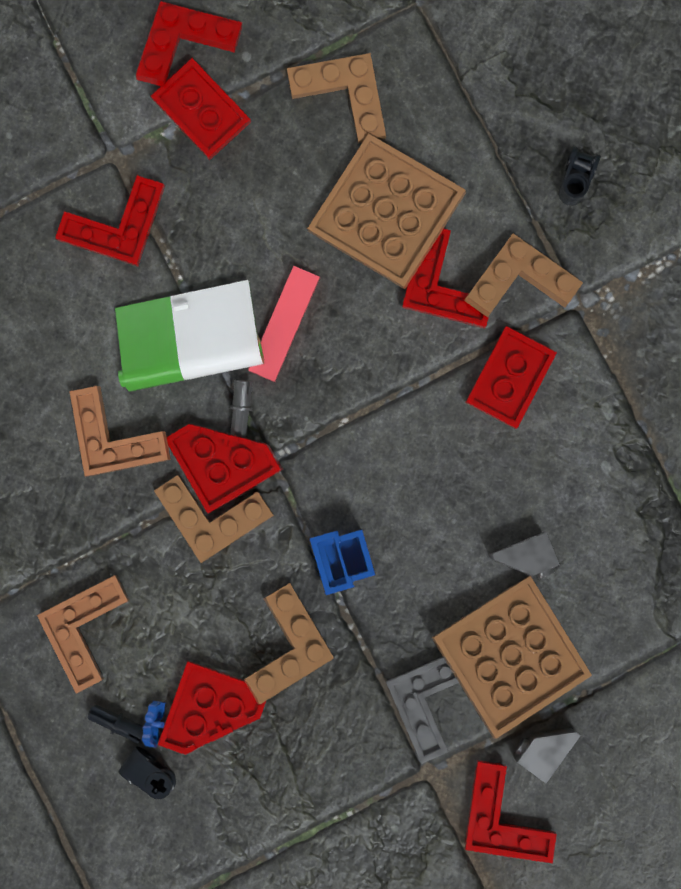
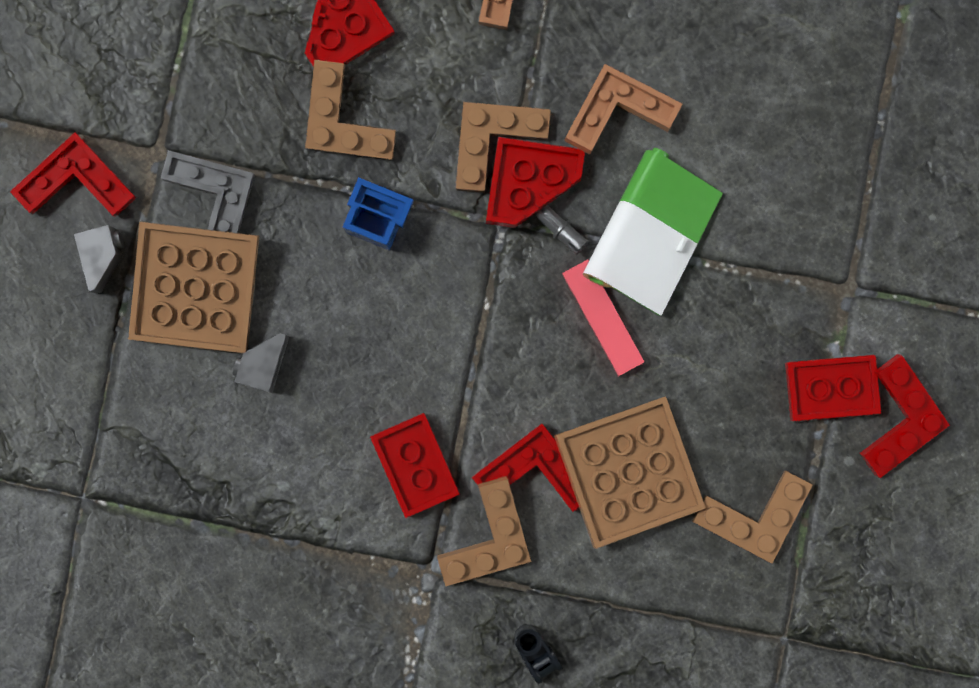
camera: 125 degrees right, 0 degrees up
(123, 243) = (769, 246): red plate -> none

